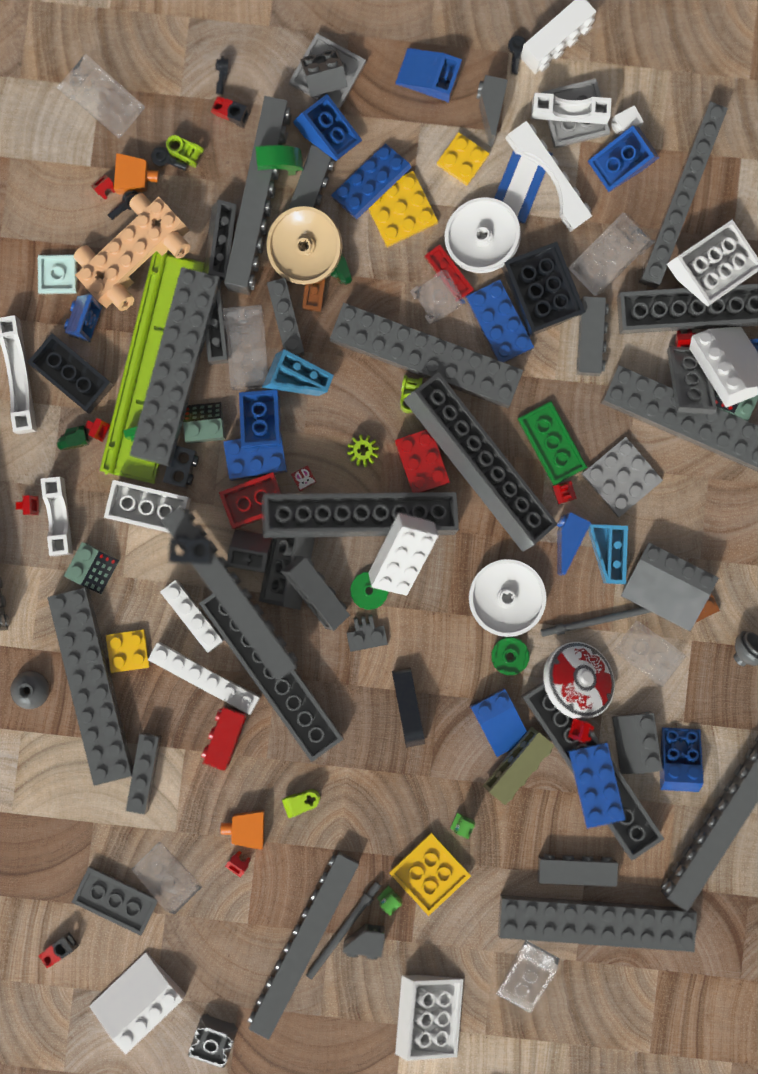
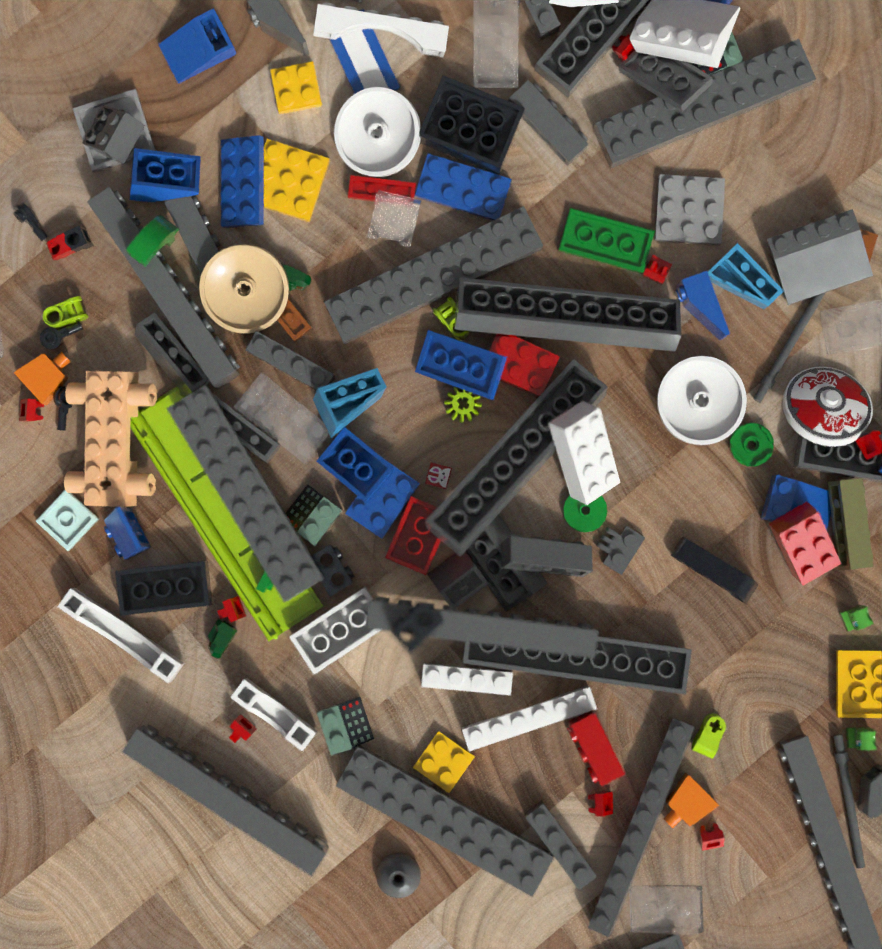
camera: 45 degrees left, 0 degrees up
(195, 775) = (603, 803): none -> red tile
(203, 814) = (641, 827): none -> dark grey brick
(385, 425) = (461, 364): none -> blue plate
(478, 748) = (805, 543): none -> brick

